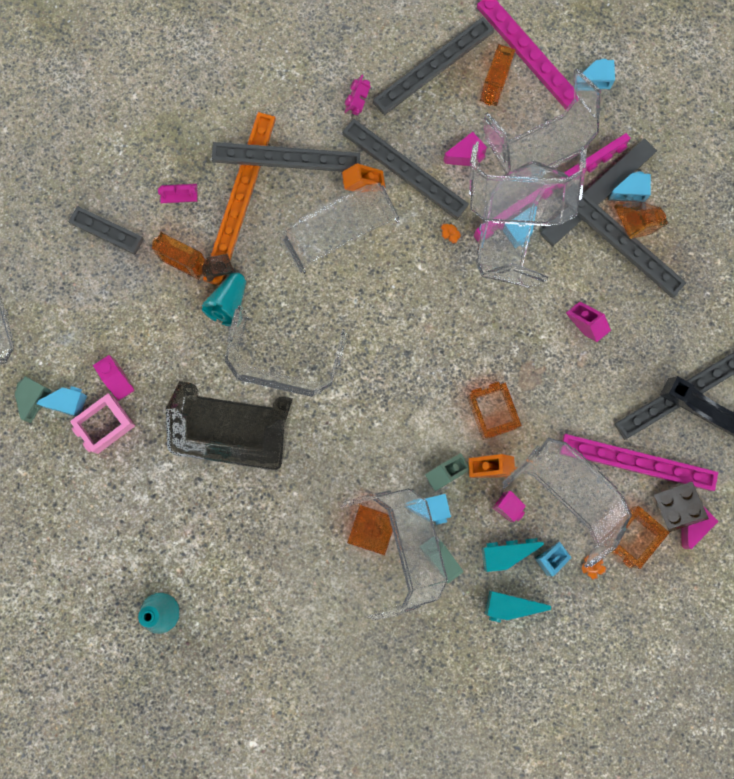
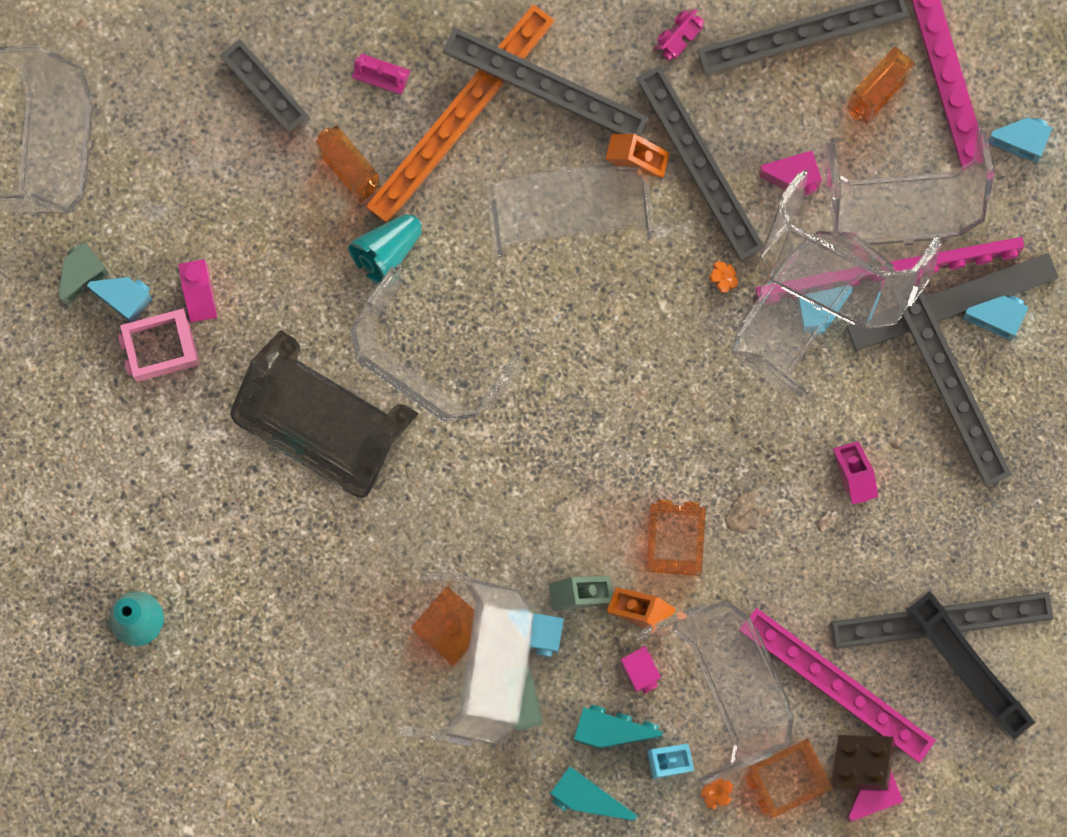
camera: 25 degrees right, 0 degrees up
(216, 266) = (390, 198): clear smoke bracket -> none
(640, 218) = (987, 361): clear orange slope -> none

